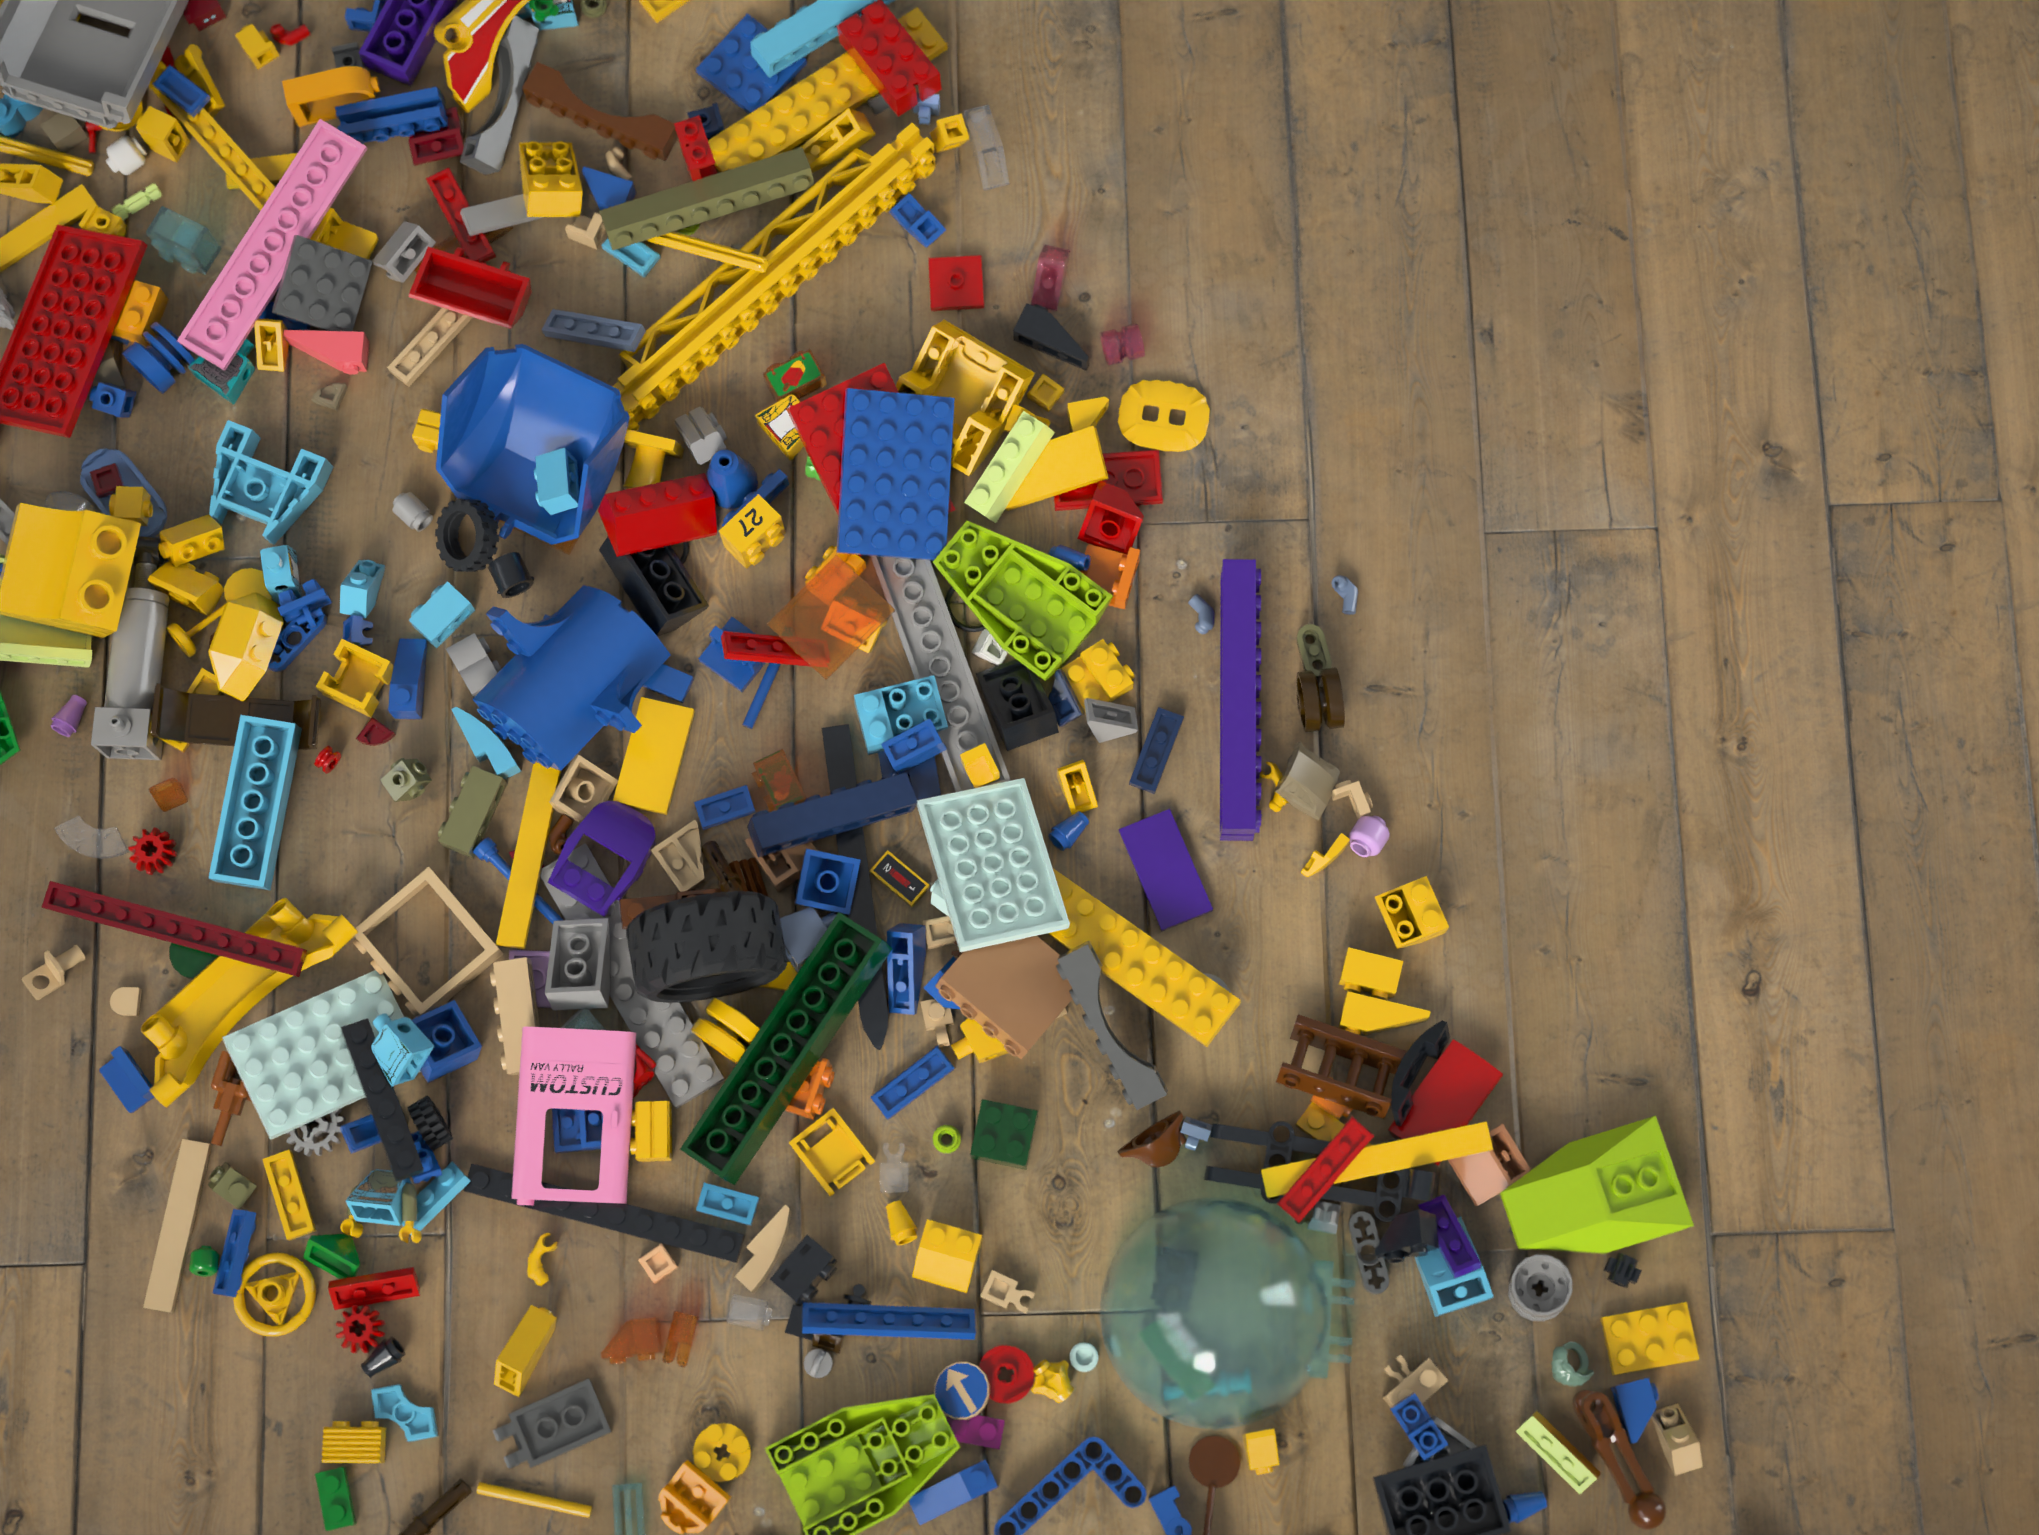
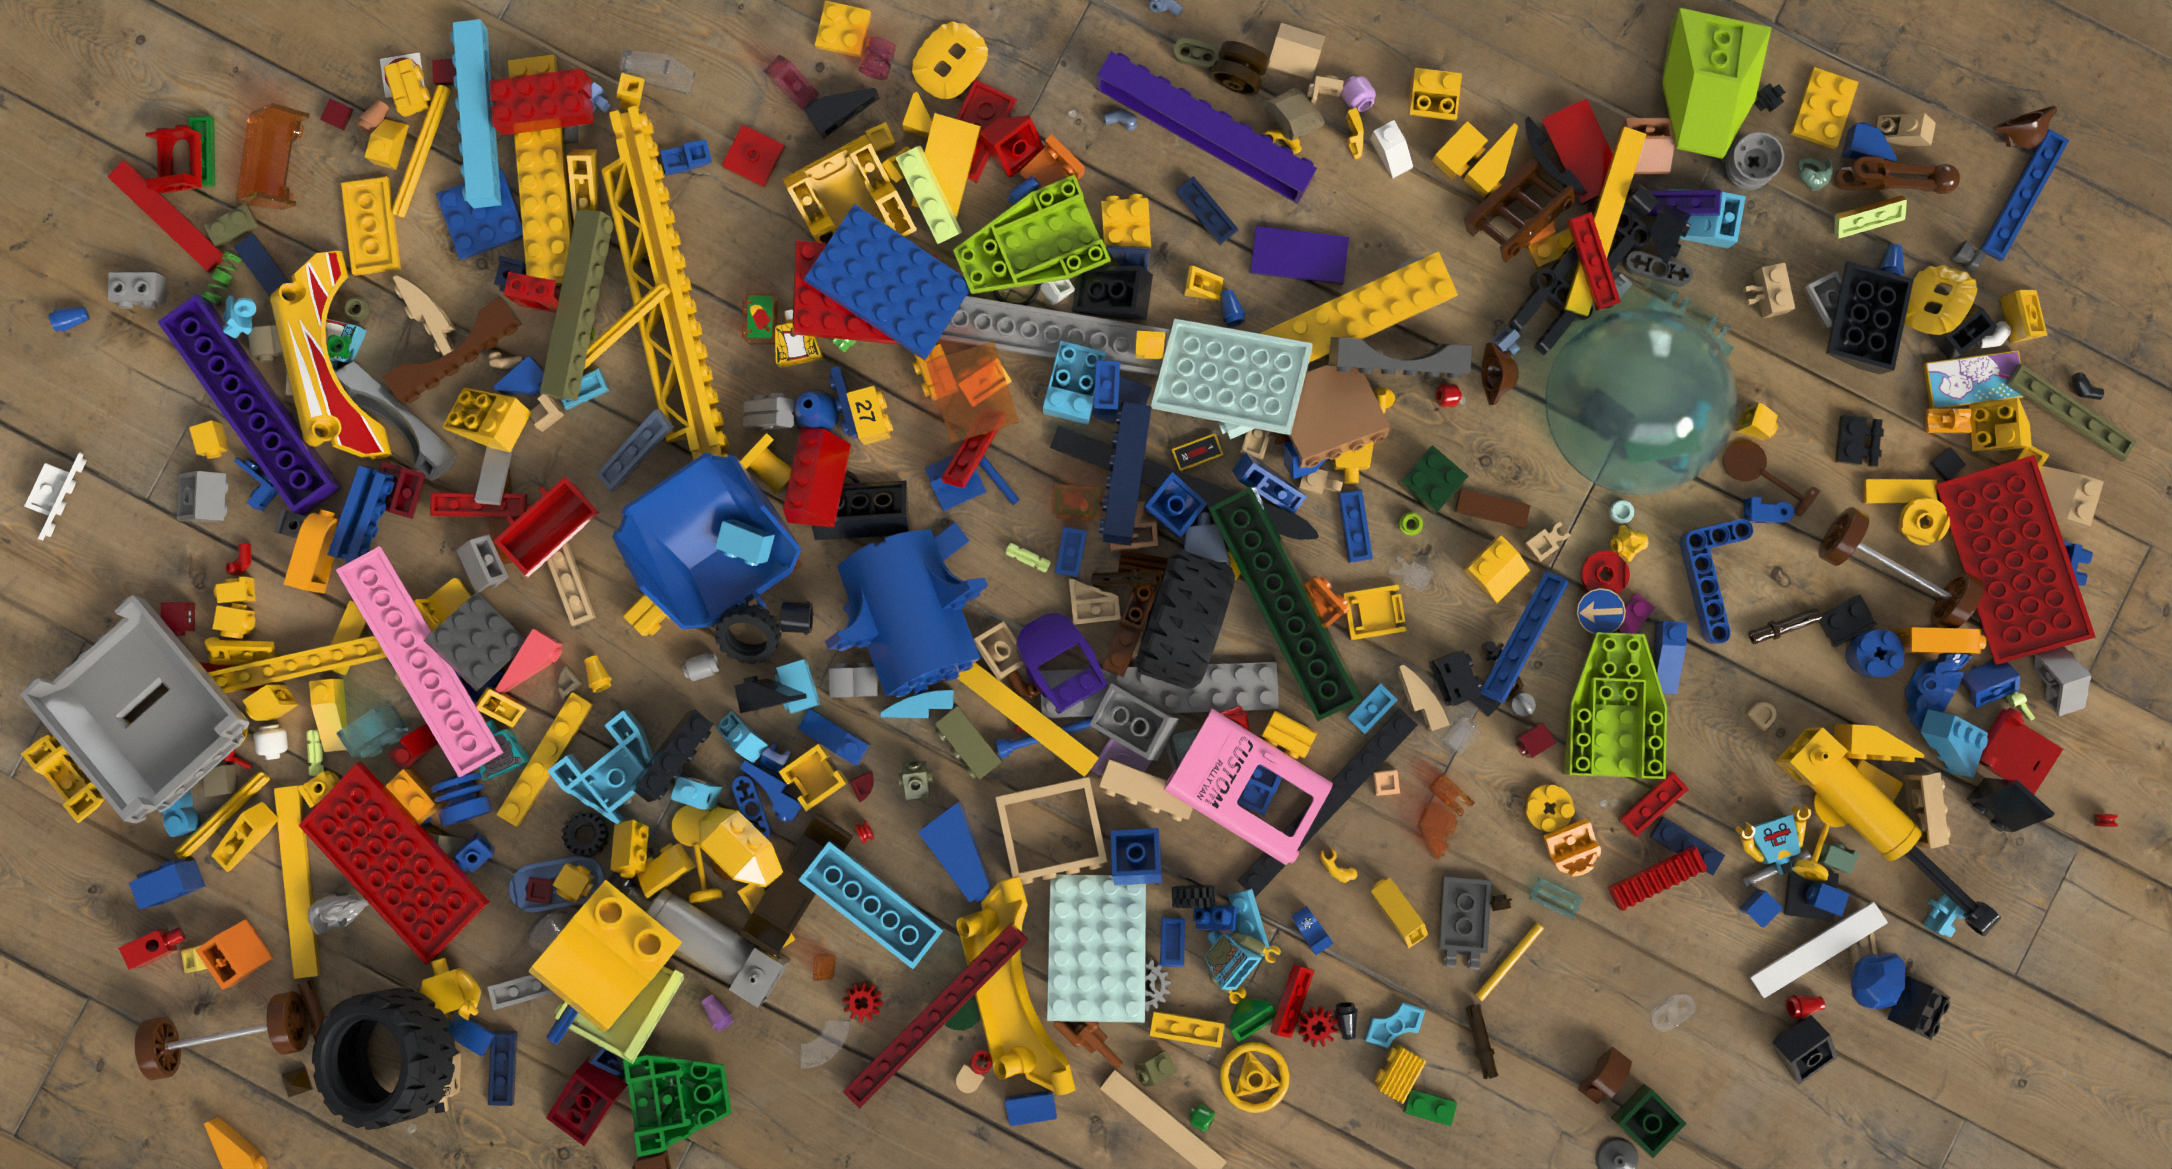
camera: 65 degrees left, 10 degrees up
(54, 970) = (914, 1122): tan bracket -> none
(149, 994) = (977, 1069): none -> red bush
(181, 91) = (242, 669): blue tile -> none
(185, 190) = (329, 711): none -> yellow slope
(185, 287) = (413, 747): none -> red slope
(188, 477) = (577, 822): none -> black tyre
(226, 59) = (234, 620): none -> yellow brick
(235, 1253) = (1209, 1091): blue plate -> none
(253, 415) = (546, 756): none -> yellow plate
(304, 528) = (671, 756): none -> black brick
(306, 607) = (730, 797): blue hips -> none
(323, 650) = (784, 805): none -> blue slope
(351, 418) = (597, 675): none -> yellow cone
(353, 860) = (957, 850): none -> blue slope
(382, 1102) = (1160, 923): black plate -> none
(400, 1048) = (1130, 889): medium azure torso -> none
(414, 584) = (764, 693): none -> black slope
(459, 1267) = (1311, 930): none -> blue leg
(592, 1454) = (1500, 902): none -> dark brown plate
(628, 65) = (424, 308): none -> tan slope
(654, 756) = (1008, 589): yellow tile -> none
(696, 768) = (1027, 557): none -> yellowish green axle
(729, 1028) = (1247, 640): yellow wheel -> none
(784, 1395) = (1534, 740): none -> dark red brick
(900, 1224) = (1455, 590): yellow cone -> none
(1010, 1217) = (1492, 508): none -> reddish brown tile
(1061, 1037) = (1384, 397): none -> yellow plate
(1105, 1104) = (1448, 395): none -> red piece
(1110, 719) = (1165, 230): light grey slope -> none
(1135, 297) = (843, 29): none -> yellow plate
(1330, 903) = (1392, 149): none -> white slope
(1378, 749) = (1296, 51): none -> tan slope
(1419, 1426) = (1810, 300): blue slope -> none

